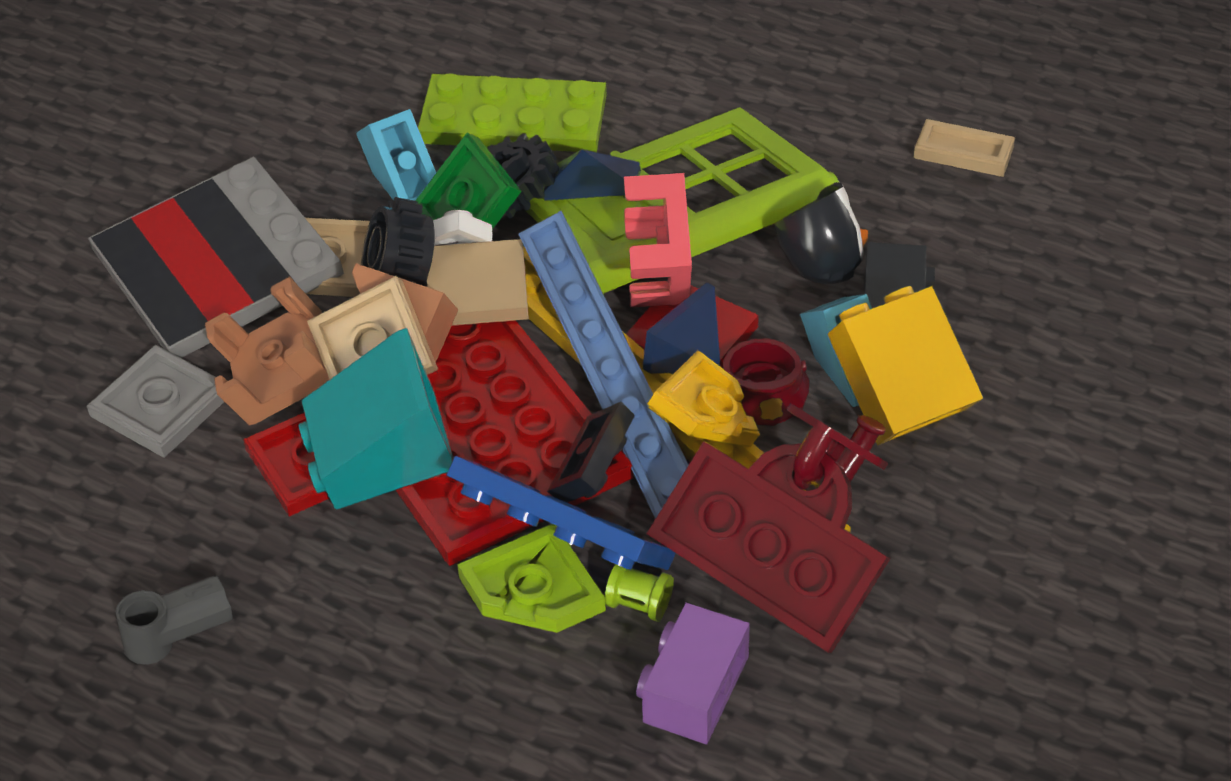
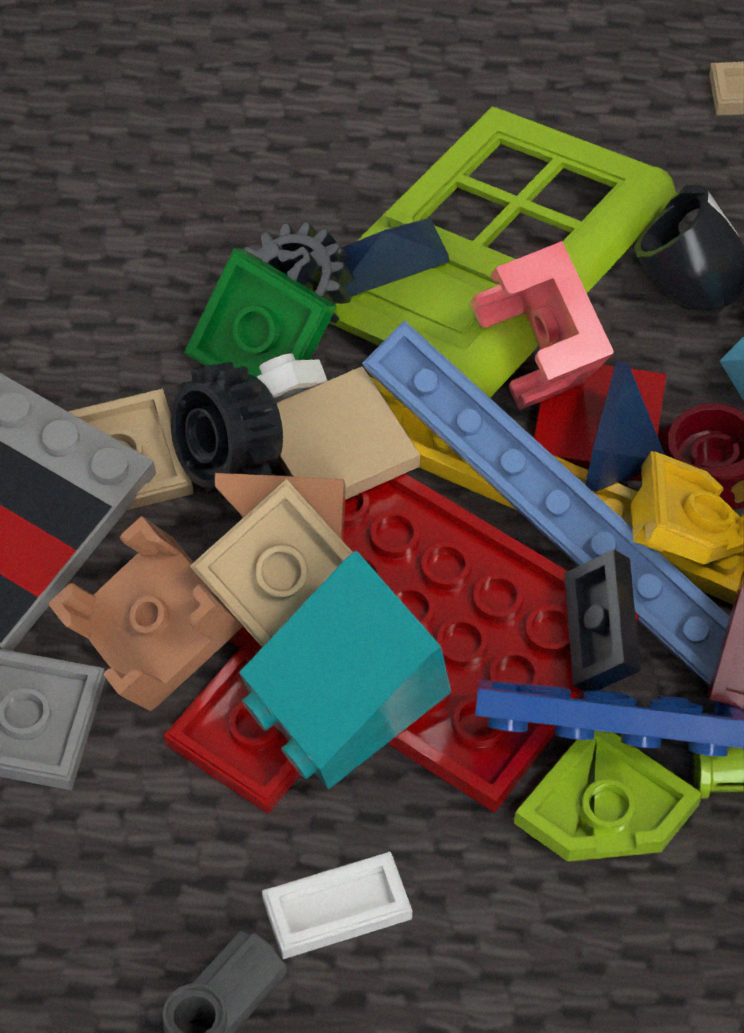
camera: 25 degrees left, 10 degrees up
(297, 588) = (336, 905): none -> white tile
(397, 155) = (140, 297): medium azure slope -> none
(498, 107) = (232, 192): lime plate -> none

